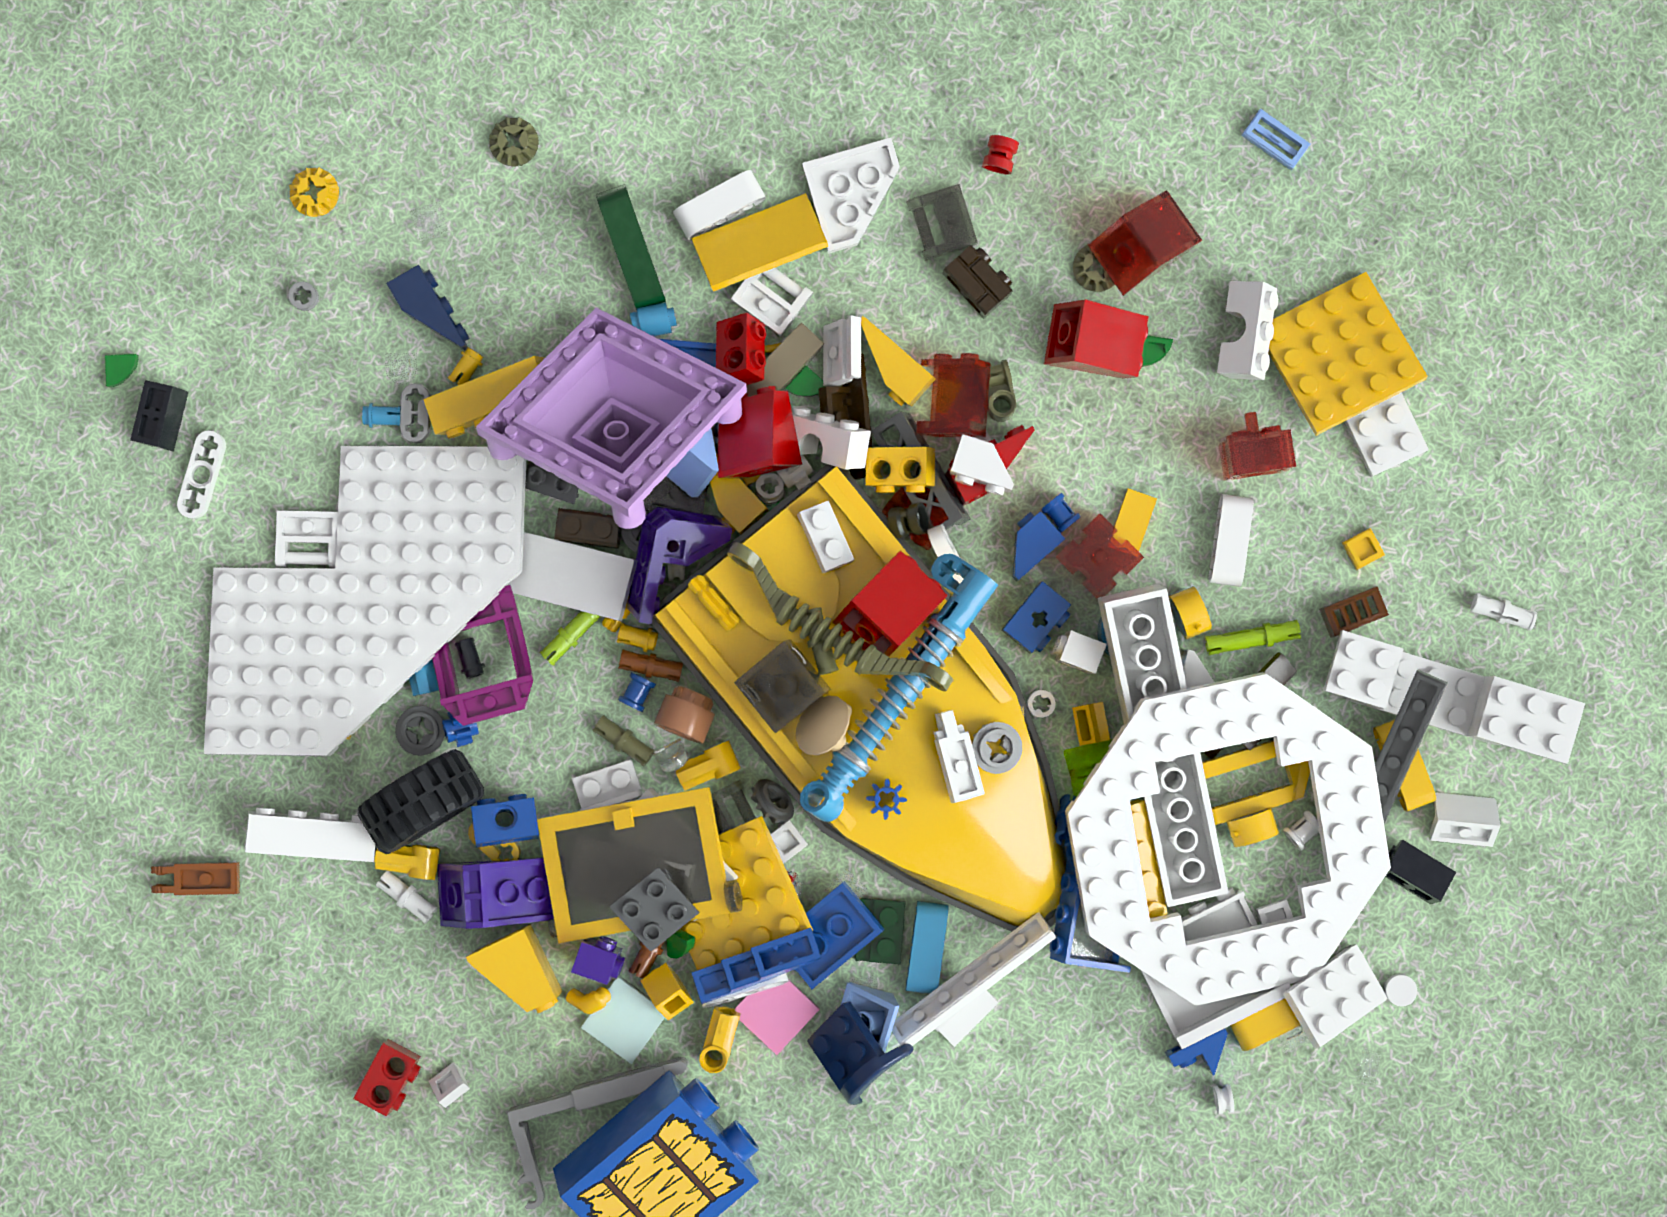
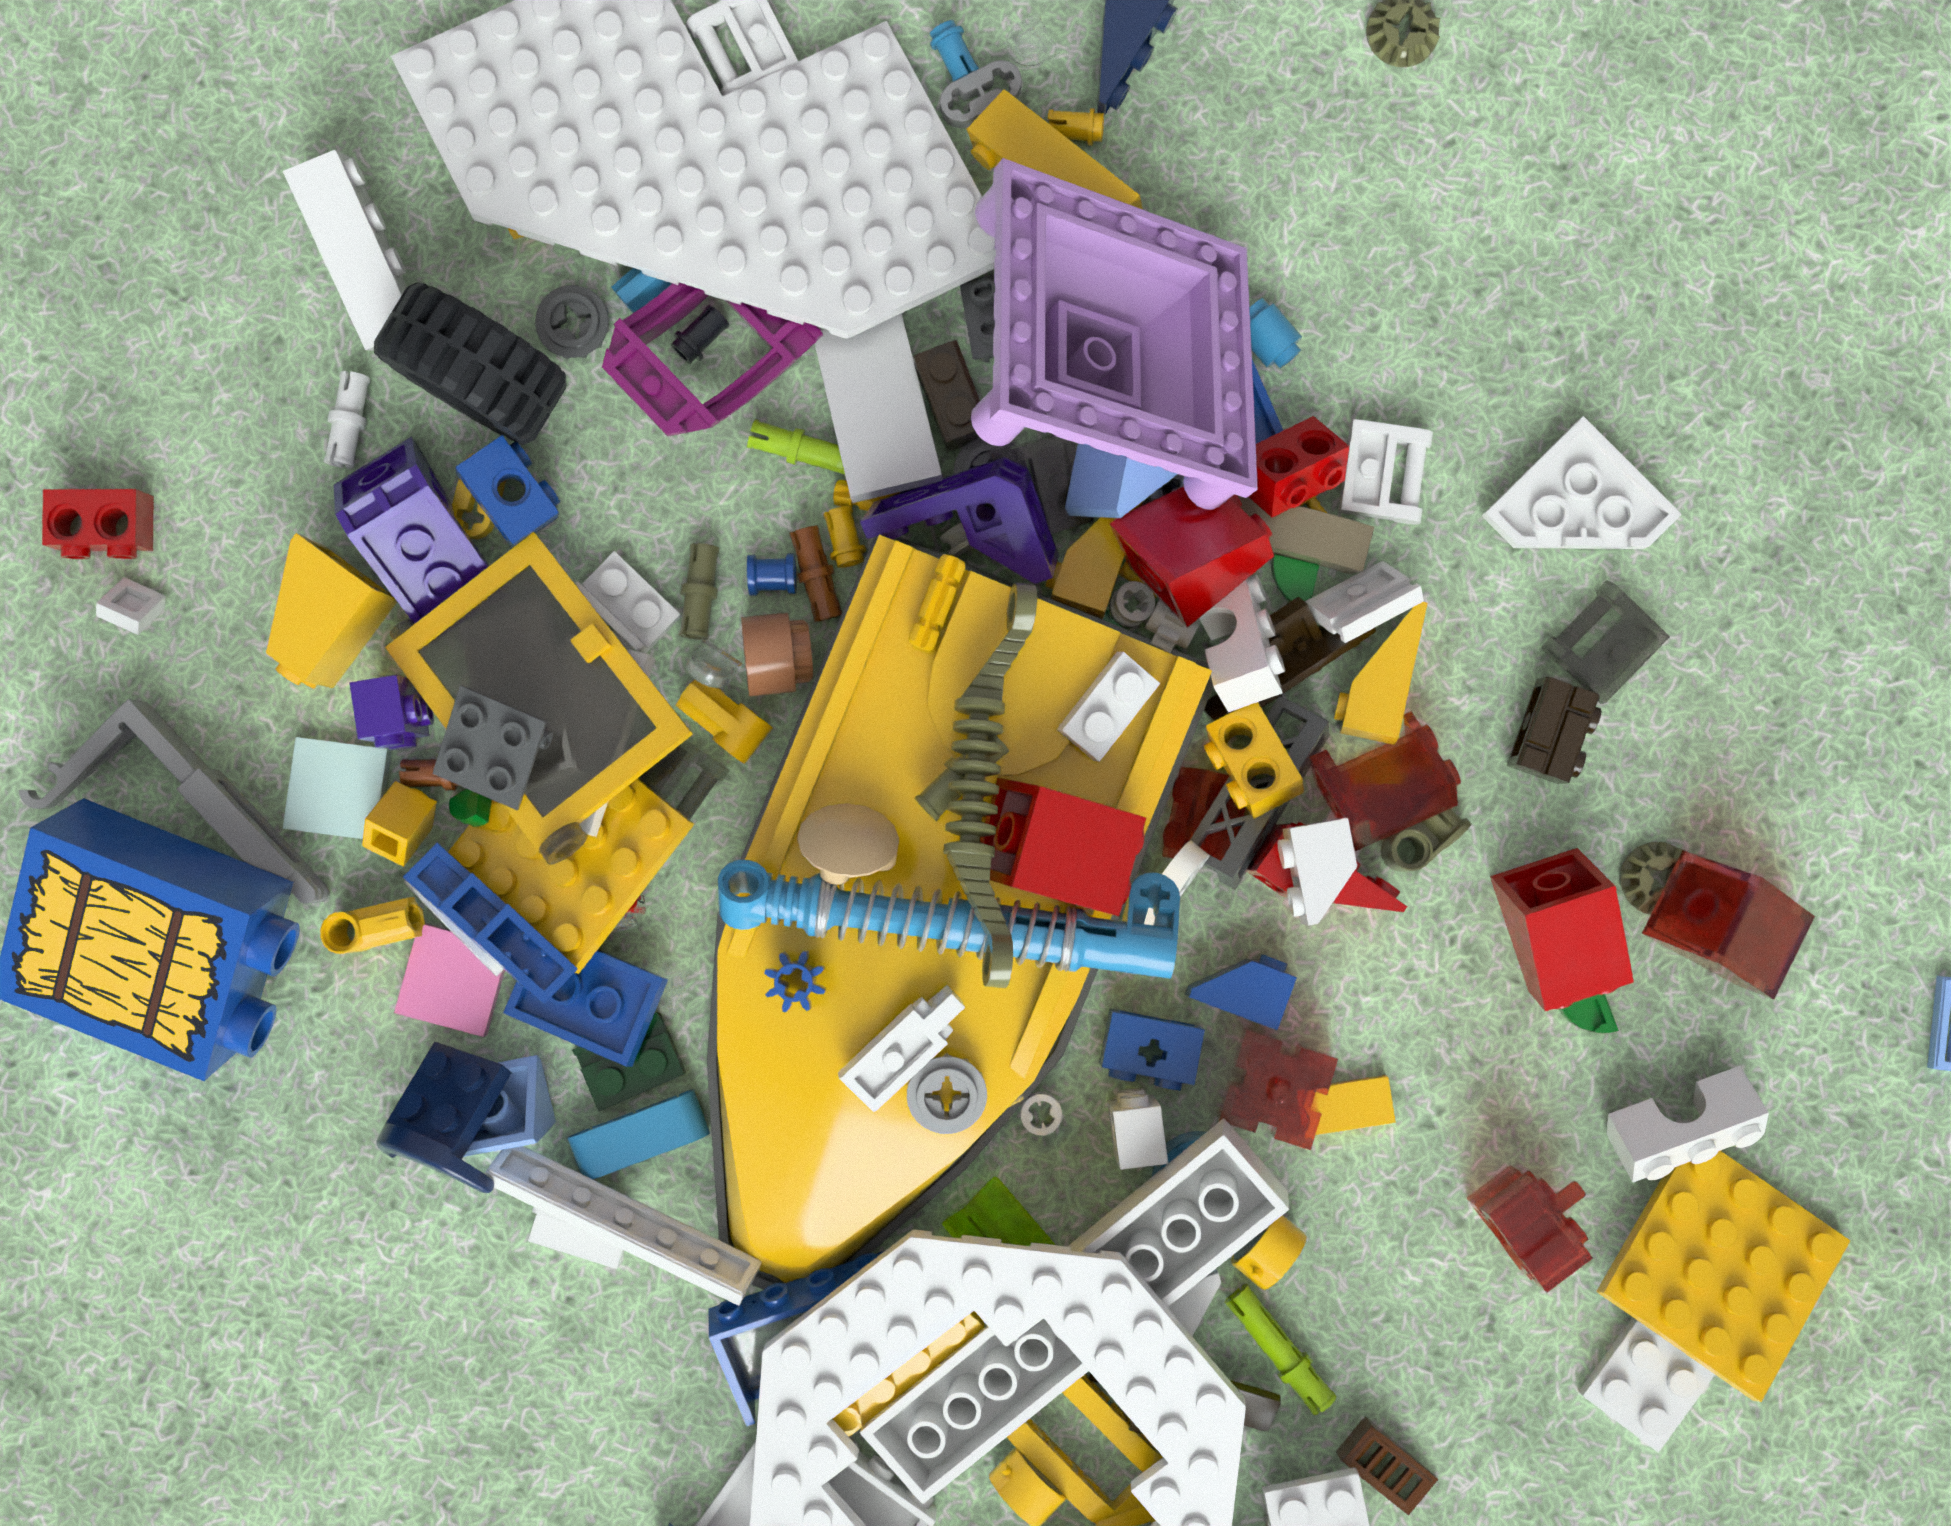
camera: 65 degrees right, 0 degrees up
(200, 878) = (229, 142): dark orange hinge -> none
(413, 860) = (398, 405): yellow piece -> none
(457, 732) = (592, 374): blue gear -> none
(590, 1002) = (331, 729): yellow arm -> none
(630, 247) = (1350, 250): dark green beam -> none
(719, 203) = (1469, 337): white beam -> none
(759, 242) = (1448, 417): yellow tile -> none
(765, 794) = (734, 816): dark grey gear -> none
(782, 685) = (873, 755): clear smoke brick -> none
(788, 841) = (682, 876): white tile -> none
(908, 520) = (1189, 808): pearl dark grey wheel -> none
(1000, 154) = (1739, 670): red wheel -> none
(1061, 513) = (1307, 1004): blue bush -> none
(1061, 822) = (902, 1225): blue pin -> none
(1091, 723) = (1050, 1194): yellow piece -> none
(1232, 540) = (1394, 1253): white beam -> none
(1363, 548) = (1477, 1433): yellow tile -> none

